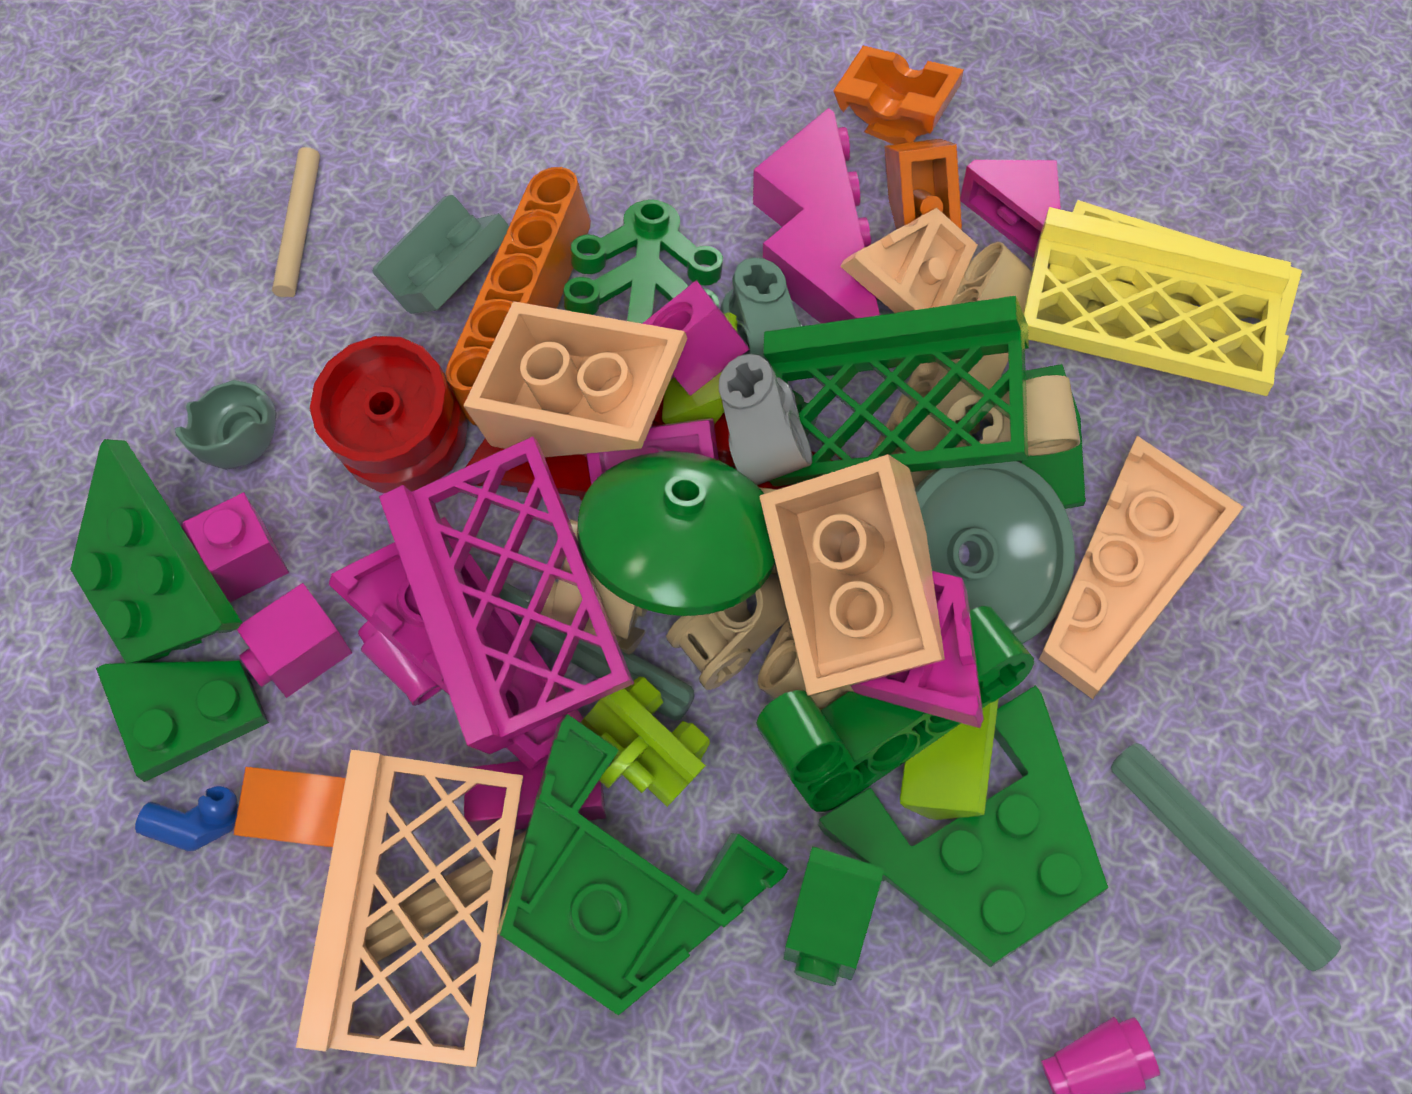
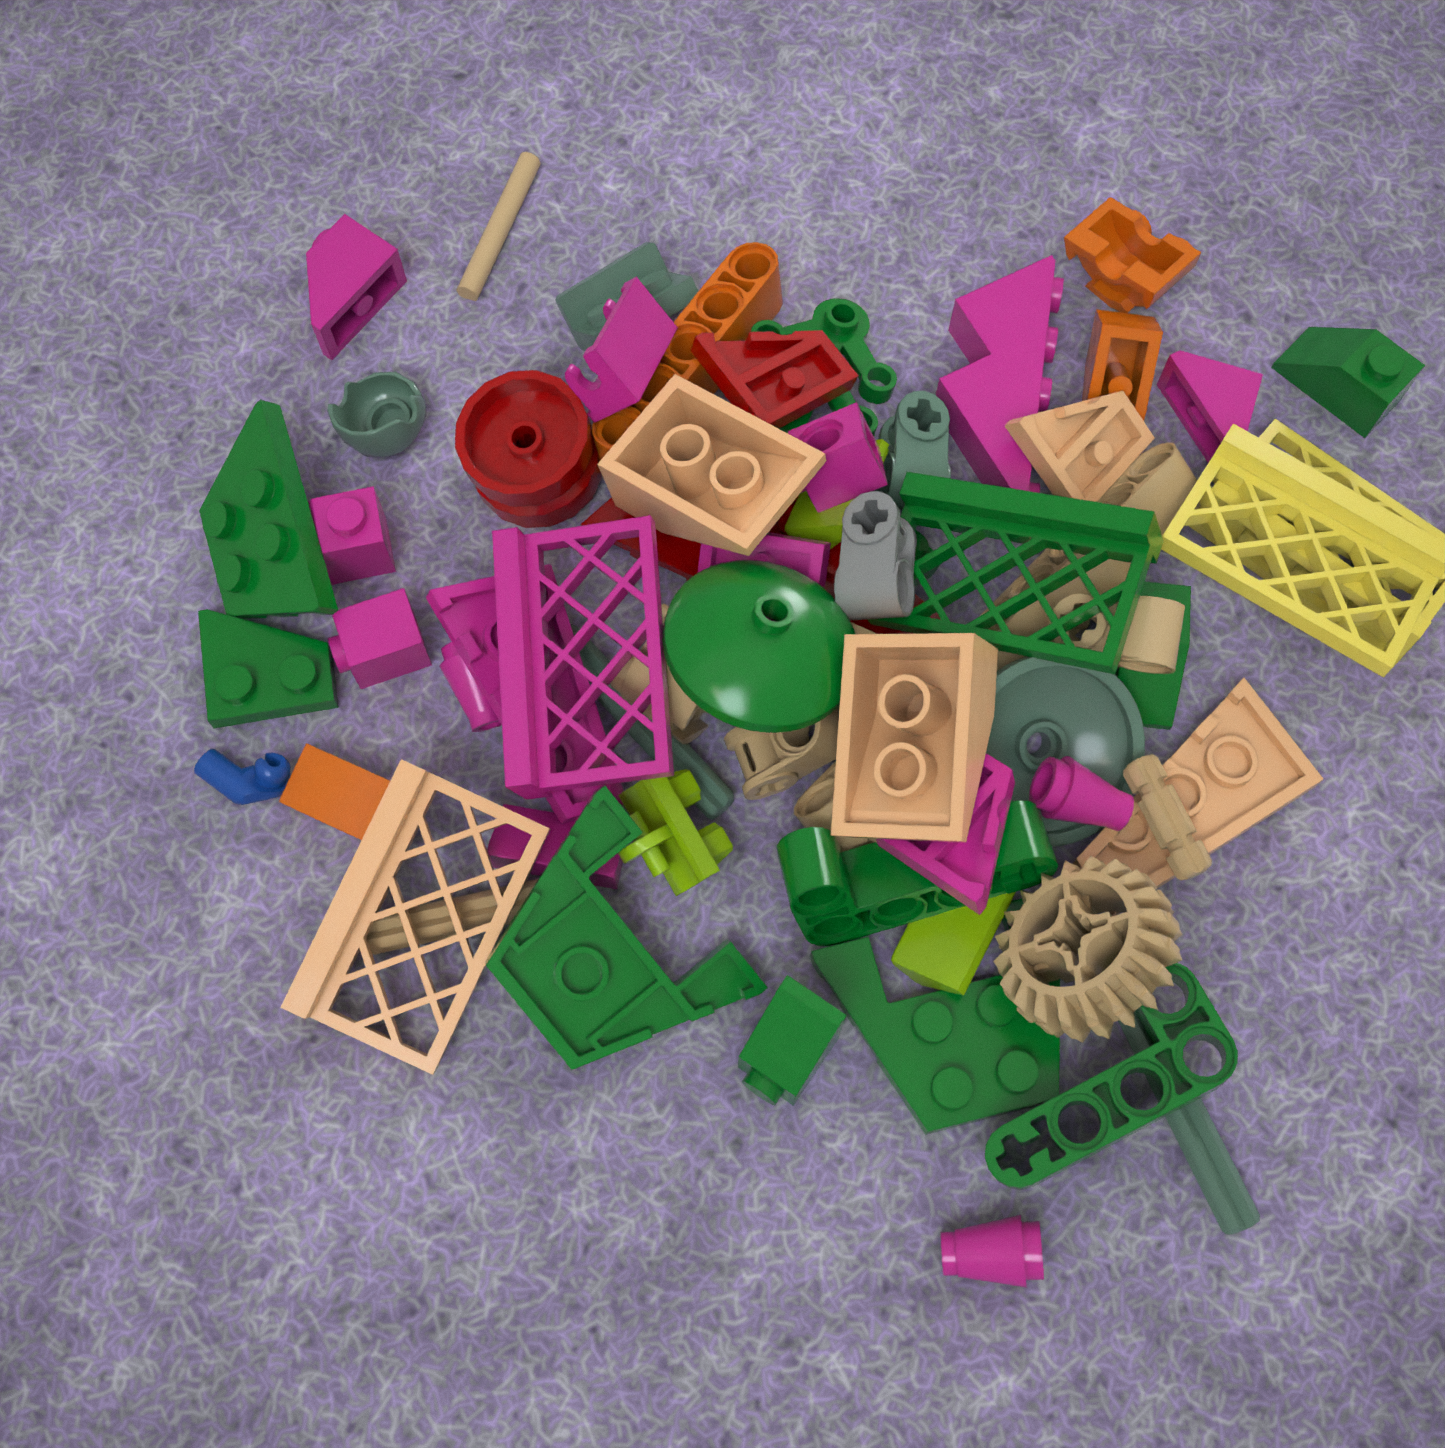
camera: 15 degrees right, 5 degrees up
(163, 309) = (349, 281): none -> dark pink slope
(457, 295) = (623, 352): none -> dark pink hinge
(608, 277) = (776, 373): none -> red wing
(1026, 587) = (1075, 794): none -> dark pink cone
(1116, 584) = (1167, 817): none -> tan axle
(1118, 729) = (1109, 957): none -> tan gear
(1130, 141) = (1350, 373): none -> green slope
(1153, 869) = (1102, 1092): none -> green beam

